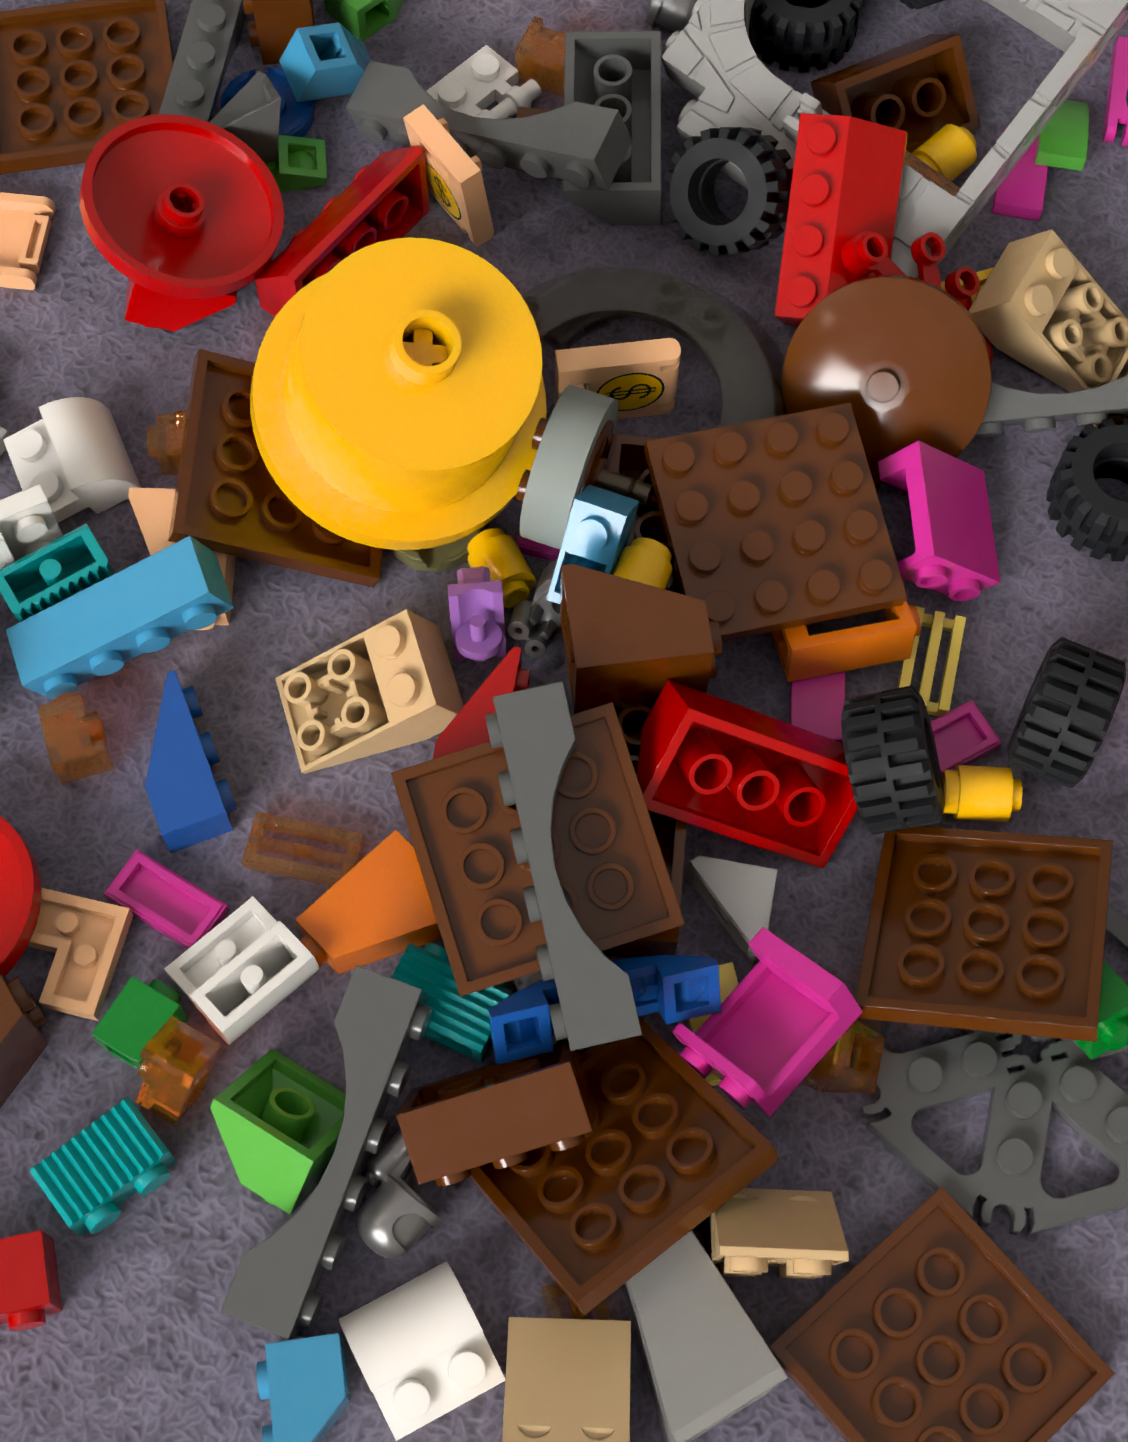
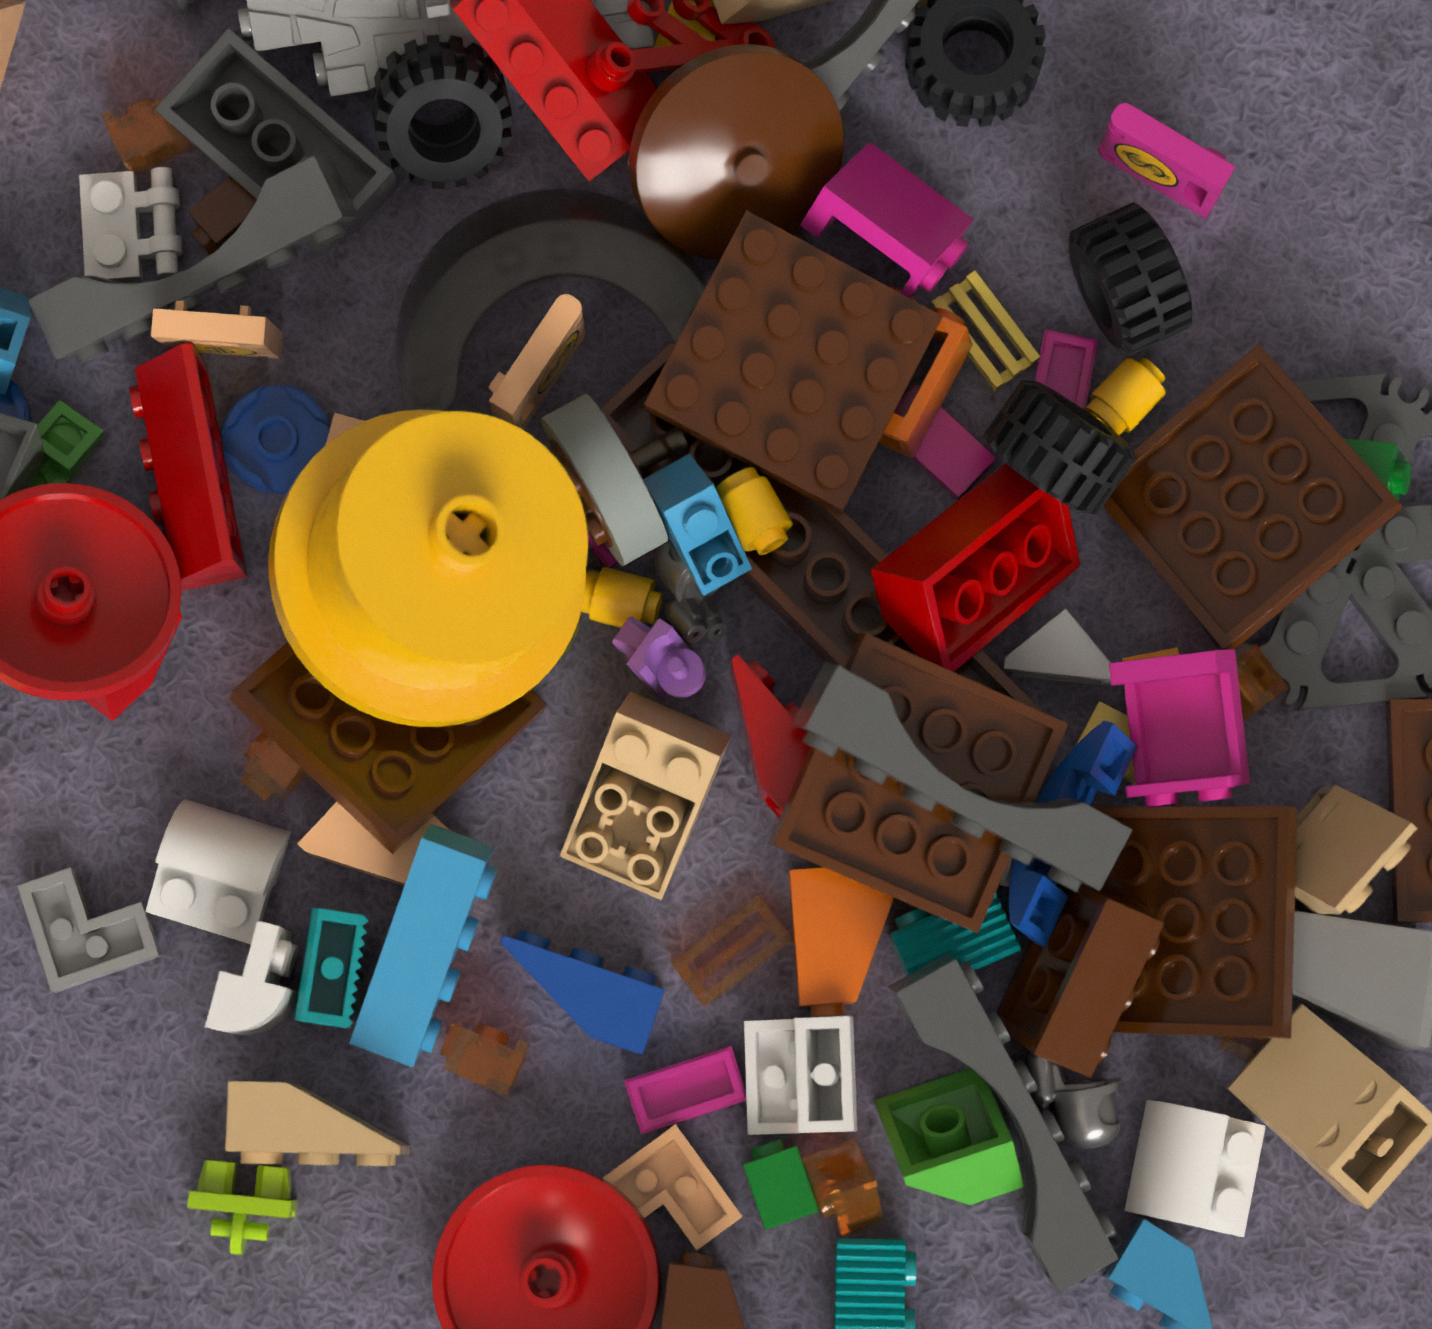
camera: 50 degrees left, 15 degrees up
(631, 639) = (812, 570): reddish brown slope -> none

